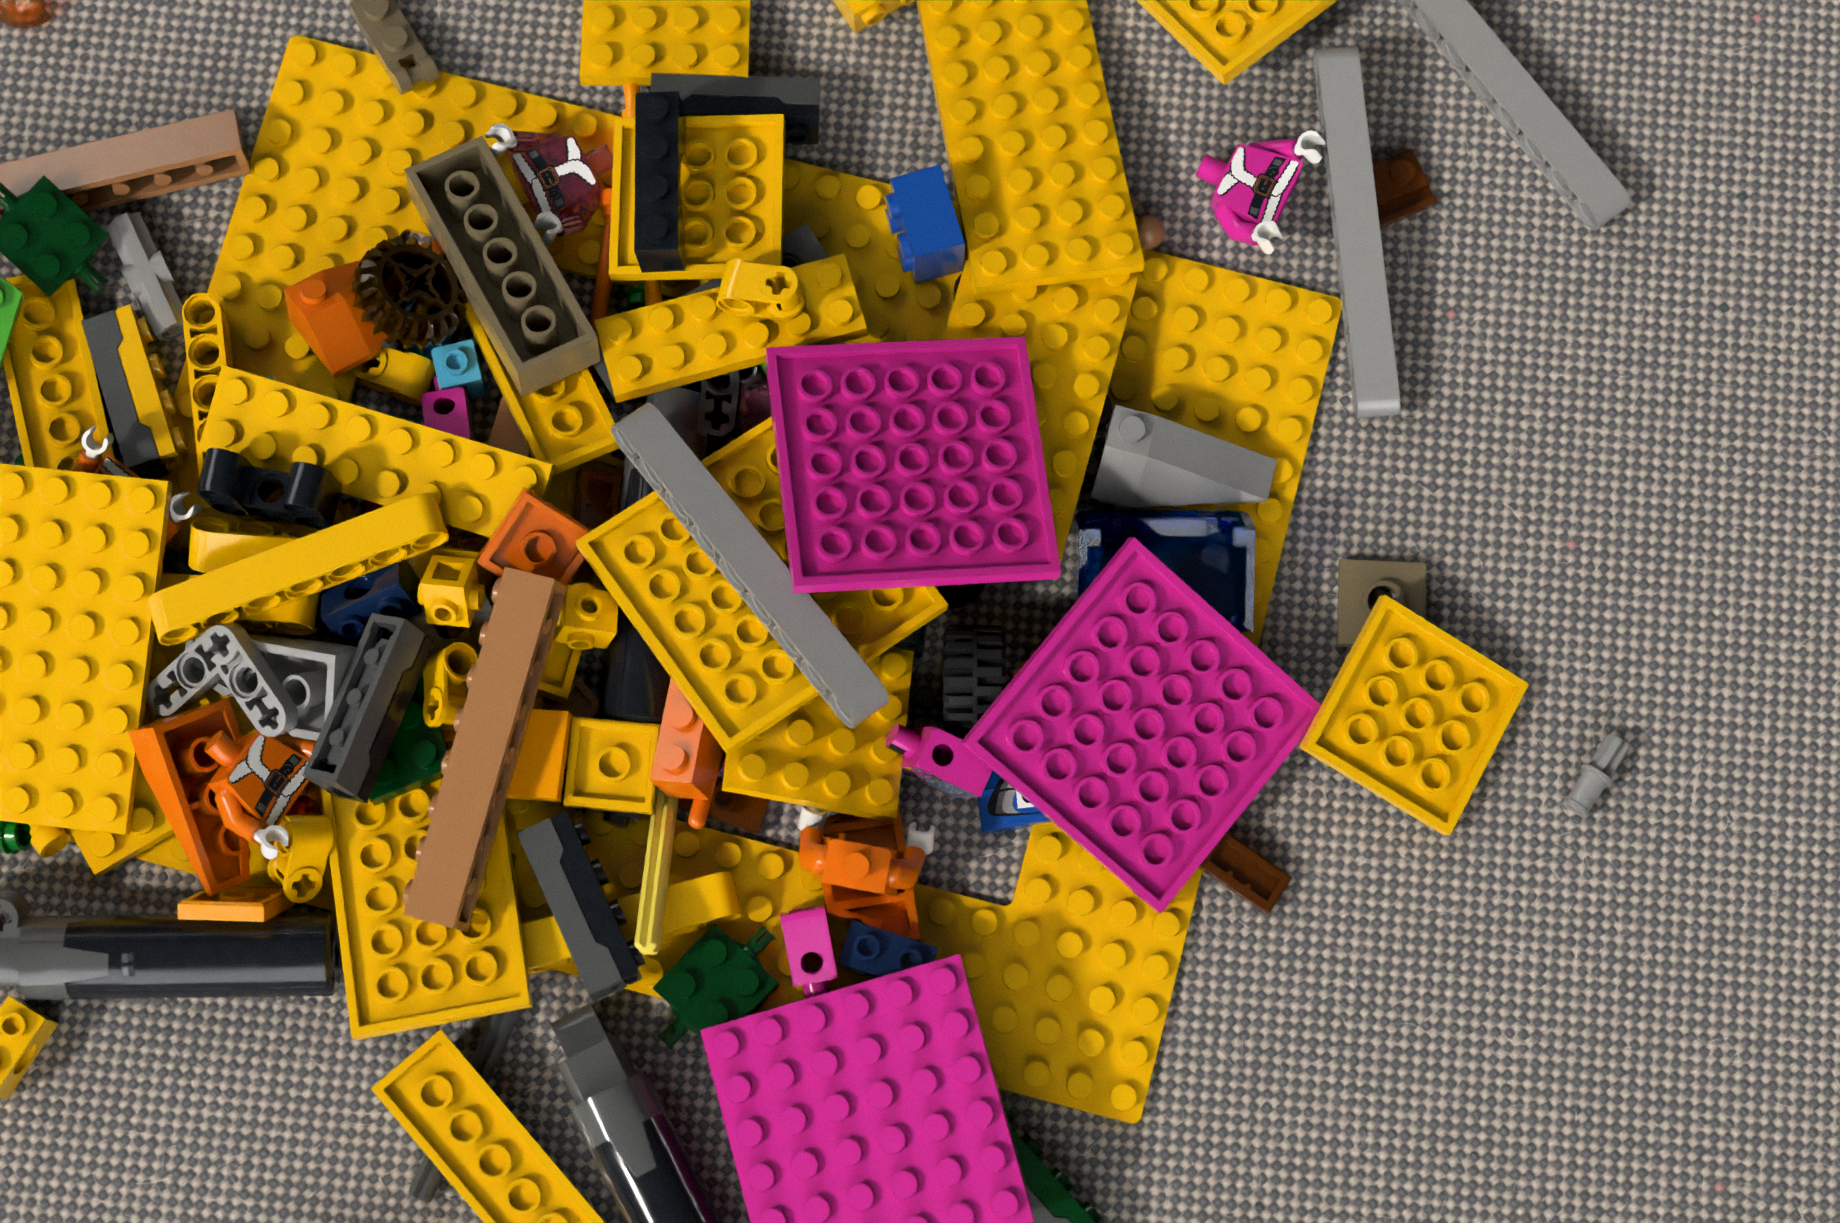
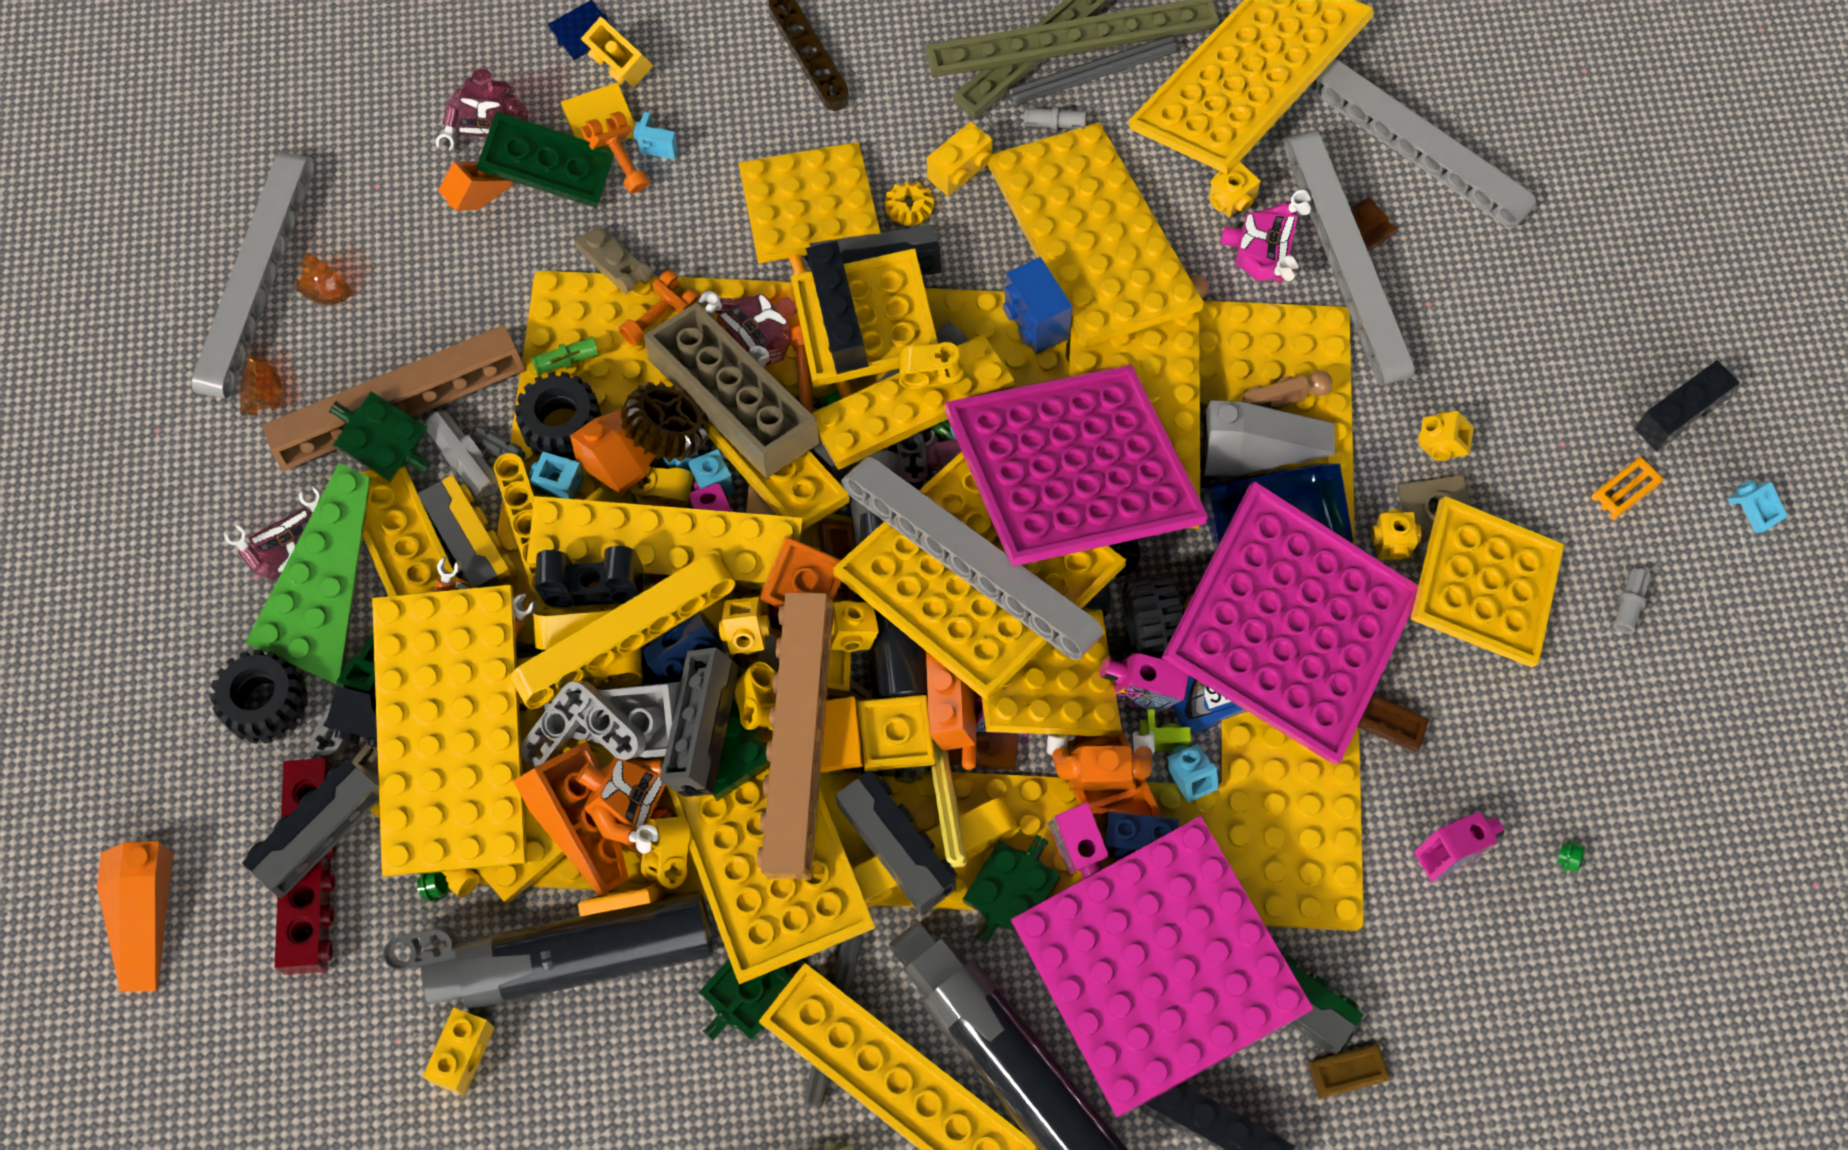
camera: 10 degrees left, 10 degrees down
(196, 270) = (494, 443): none -> dark grey axle
(253, 319) = (552, 467): none -> medium azure brick
(260, 226) = (547, 396): none -> black tyre
(304, 167) = (586, 348): none -> bright green pin
(358, 1062) = (743, 1003): none -> dark green plate
(454, 92) = (633, 331): none -> orange bar
(812, 48) = (899, 211): none -> yellow gear
(958, 834) = (1165, 737): none -> lime bracket
(975, 884) = (1188, 766): none -> medium azure brick
(1225, 406) = (1289, 390): none -> medium nougat plate
(1230, 107) = (1233, 191): none -> yellow brick
(1283, 1046) = (1458, 845): none -> dark pink torso
(1313, 643) = (1395, 535): none -> yellow brick
(1416, 508) = (1446, 435): none -> yellow brick
(1421, 1088) = (1571, 856): none -> green plate
(1605, 638) = (1609, 503): none -> light orange tile
(1745, 527) = (1694, 398): none -> black arch
(1798, 681) = (1759, 504): none -> medium azure bracket

